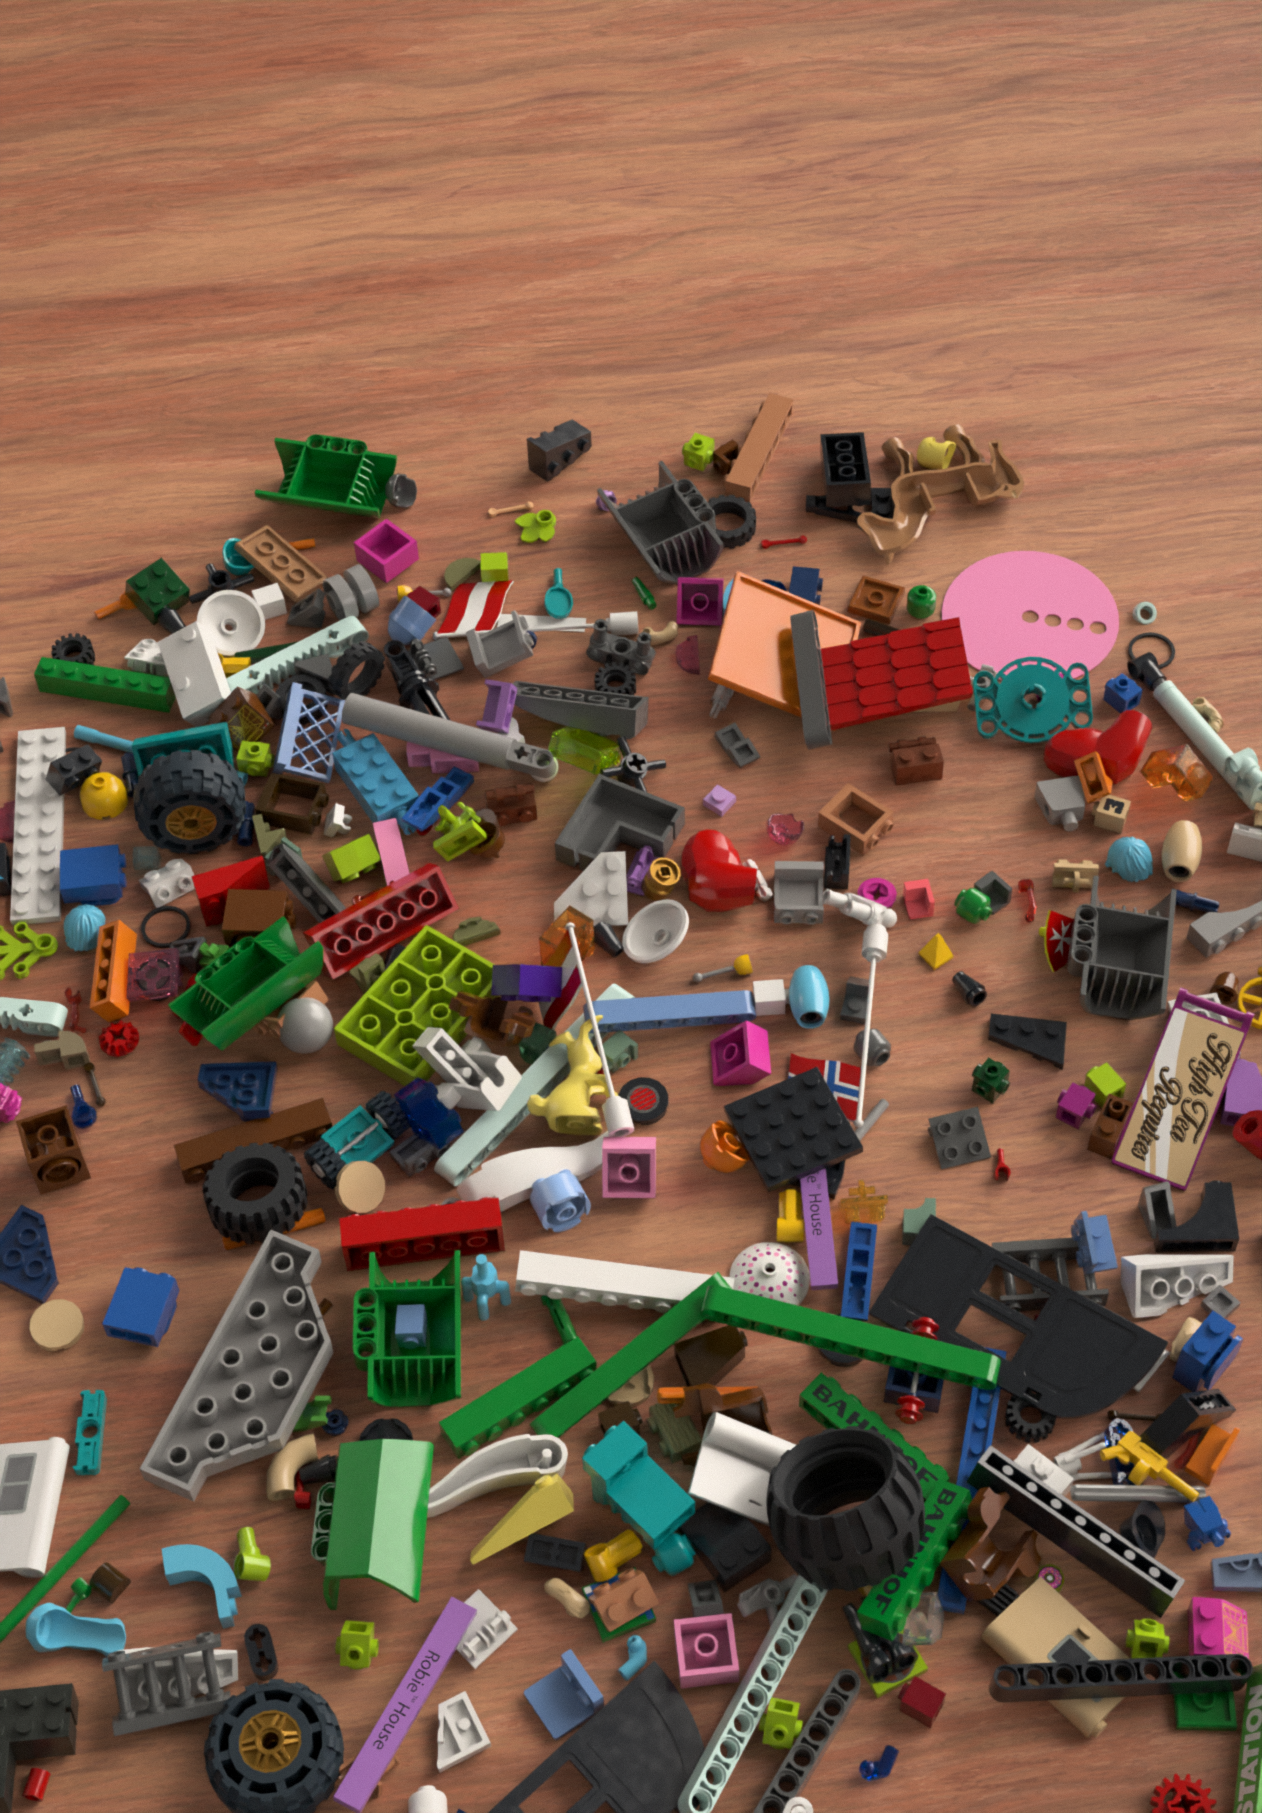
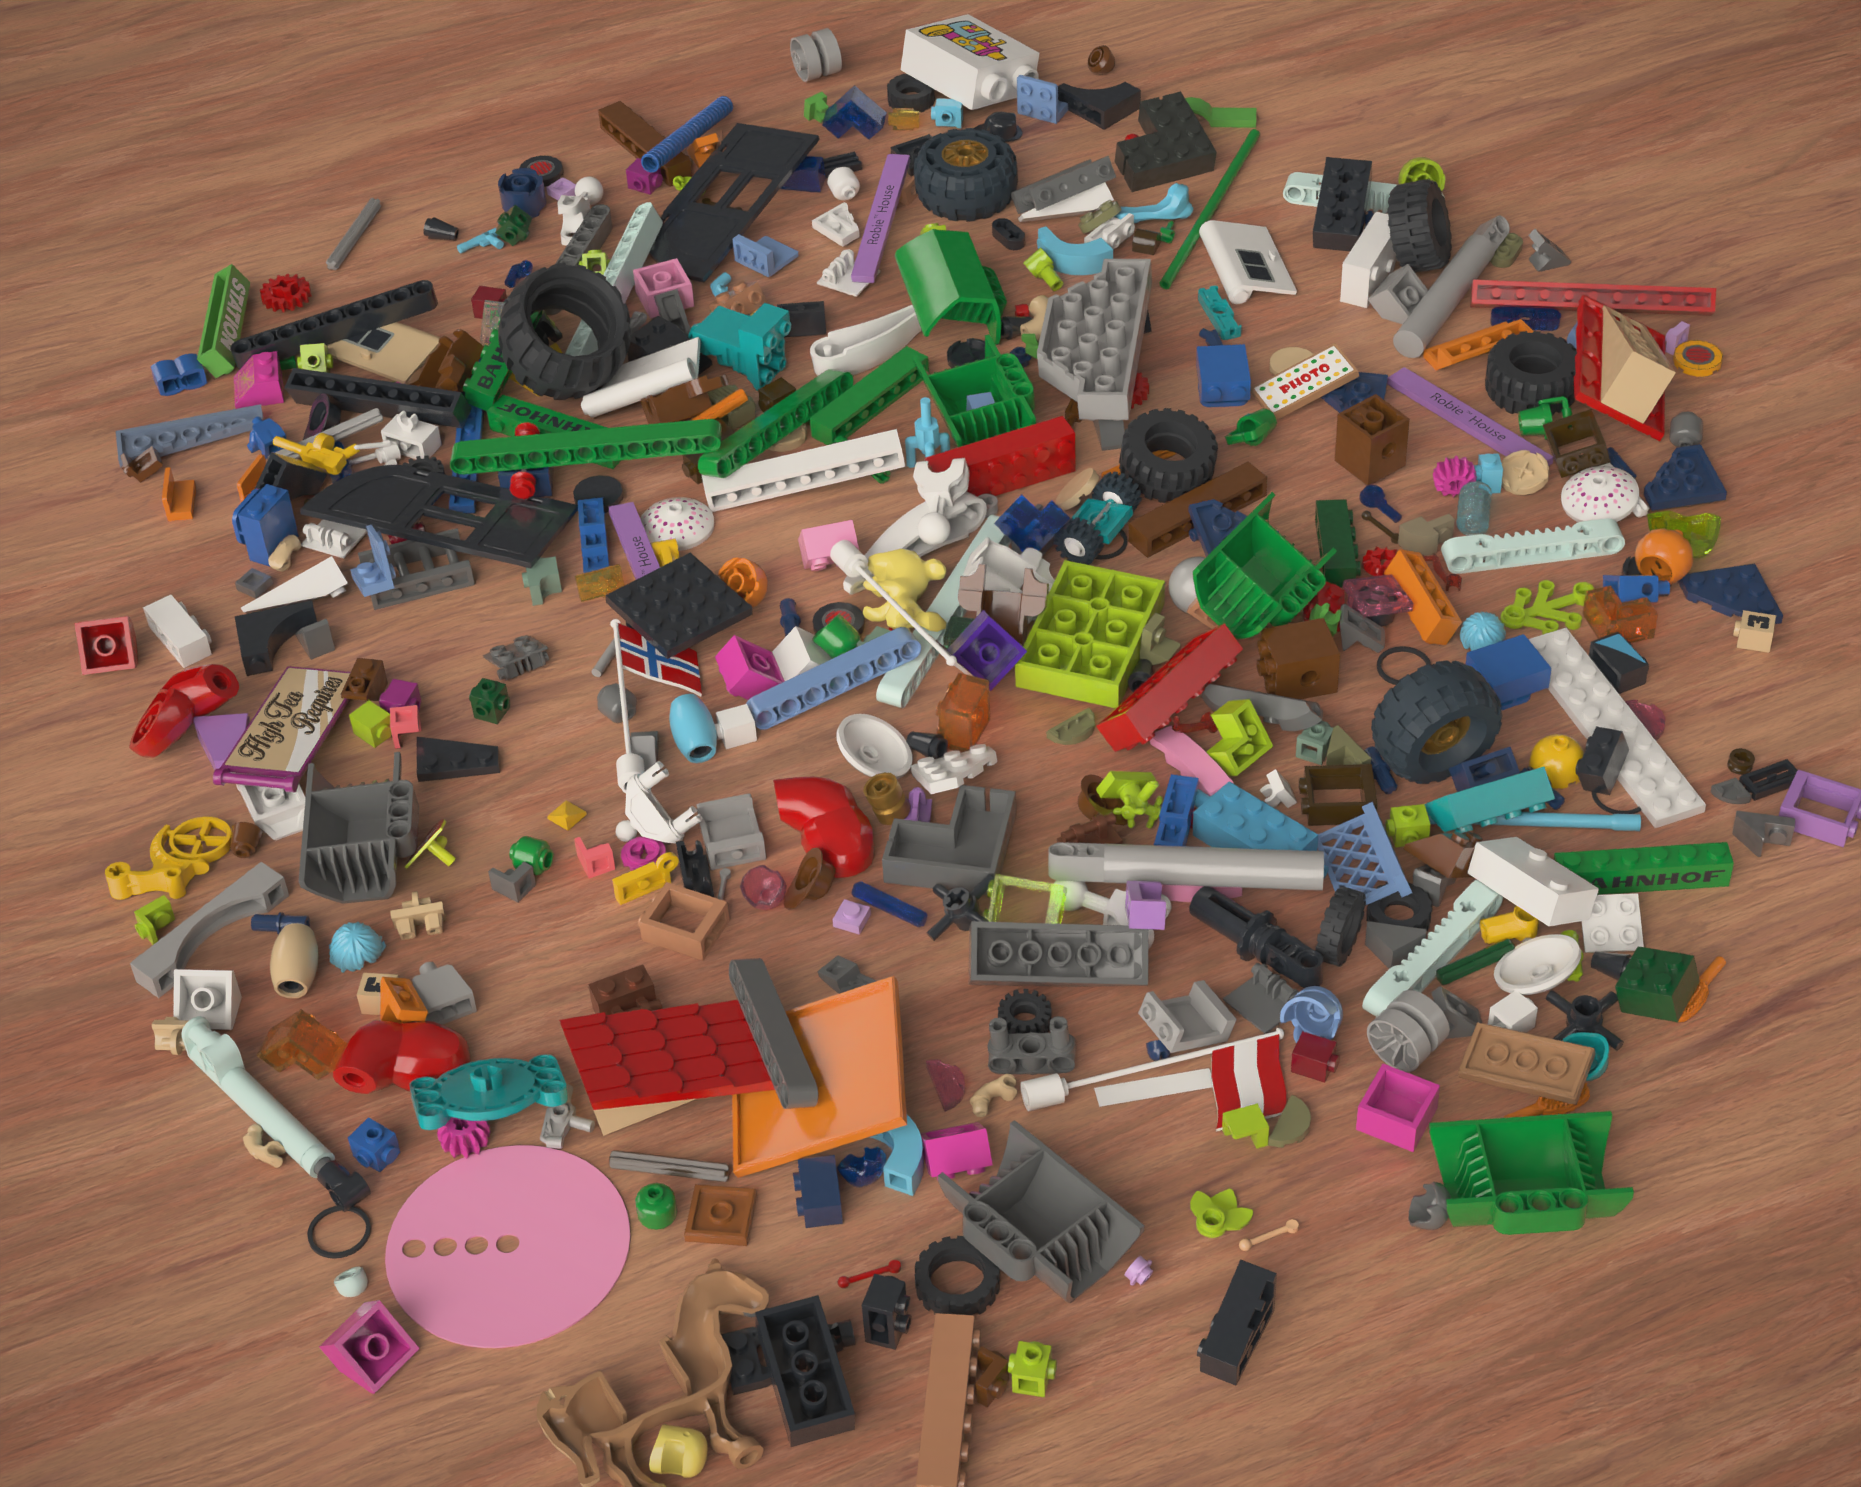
camera: 165 degrees right, 10 degrees down
(64, 1275) = (1305, 381): none -> tile
(74, 644) = (1712, 890): black tyre -> none
(119, 1387) = (1211, 337): none -> dark blue bar
(144, 1231) = (1253, 428): none -> green piece
(145, 1601) = (1113, 231): none -> white bracket
(146, 1632) = (1091, 221): none -> olive plate
(150, 1063) = (1334, 530): none -> dark green brick
(213, 886) = (1353, 681): red slope -> none
(404, 590) = (1345, 1072): hinge -> none
(448, 1058) = (1047, 560): white brick -> none
(504, 1171) = (939, 491): none -> white piece
(539, 1507) = (818, 320): light yellow wedge -> none
(558, 599) = (1144, 1113): teal piece -> none
(559, 1201) = (881, 510): light blue brick -> none
(573, 1602) = (776, 297): tan piece -> none
(648, 1058) = (837, 637): none -> green helmet
(686, 801) = (889, 904): none -> clear blue axle
(687, 1062) = (798, 653): none -> white slope
(688, 1112) = (789, 615): none -> dark blue axle
(741, 965) = (774, 753): hinge -> none
(747, 825) = (811, 880): none -> reddish brown piece
(763, 892) = (782, 840): white axle -> none
(782, 494) = (886, 1311): none -> black brick
(824, 834) = (725, 874): none -> light grey hinge
(881, 863) = (644, 879): none -> yellow hinge
(970, 989) = (524, 782): black cone -> none
(1001, 1167) = (470, 643): red hand -> none
(1027, 885) = (475, 899): clear red piece -> none
(1072, 1069) = (404, 721): none -> coral panel
(1135, 560) = (369, 1346): none -> dark pink slope

